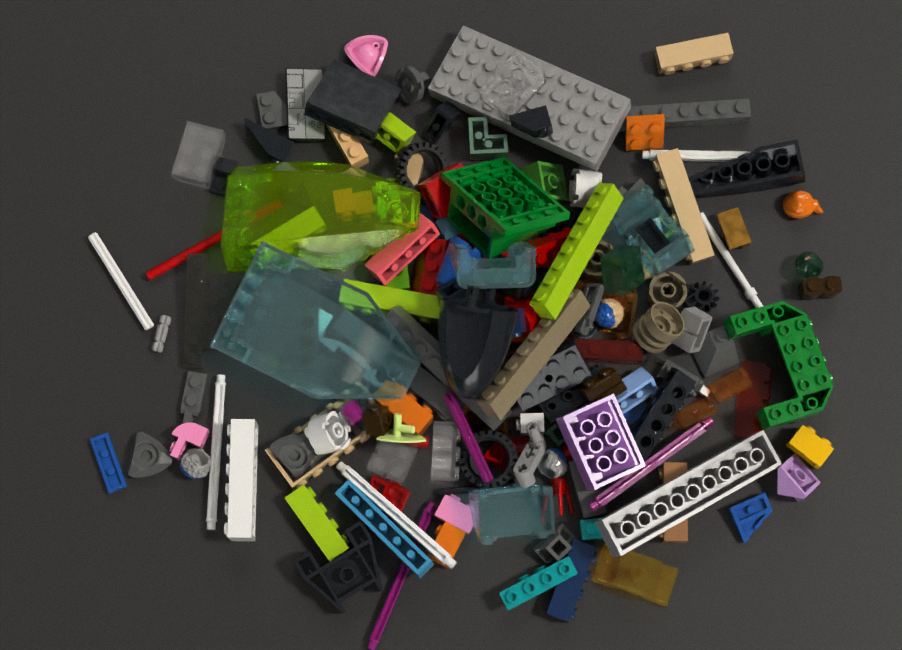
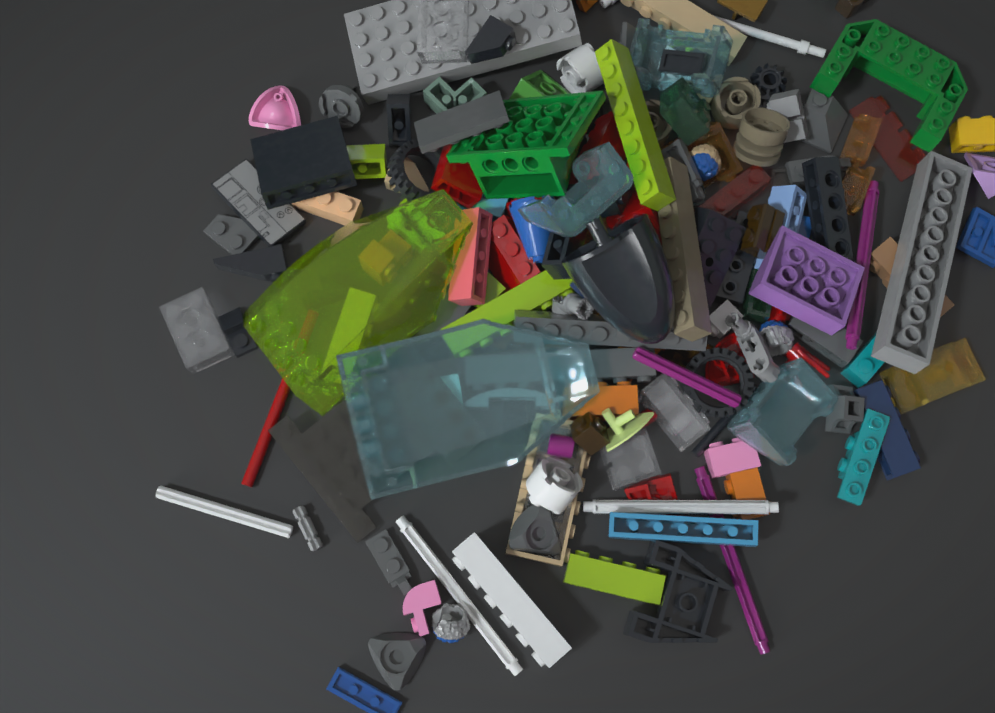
camera: 40 degrees left, 0 degrees up
(432, 329) = (572, 305): none -> light grey connector
(470, 158) = (461, 122): none -> dark grey tile

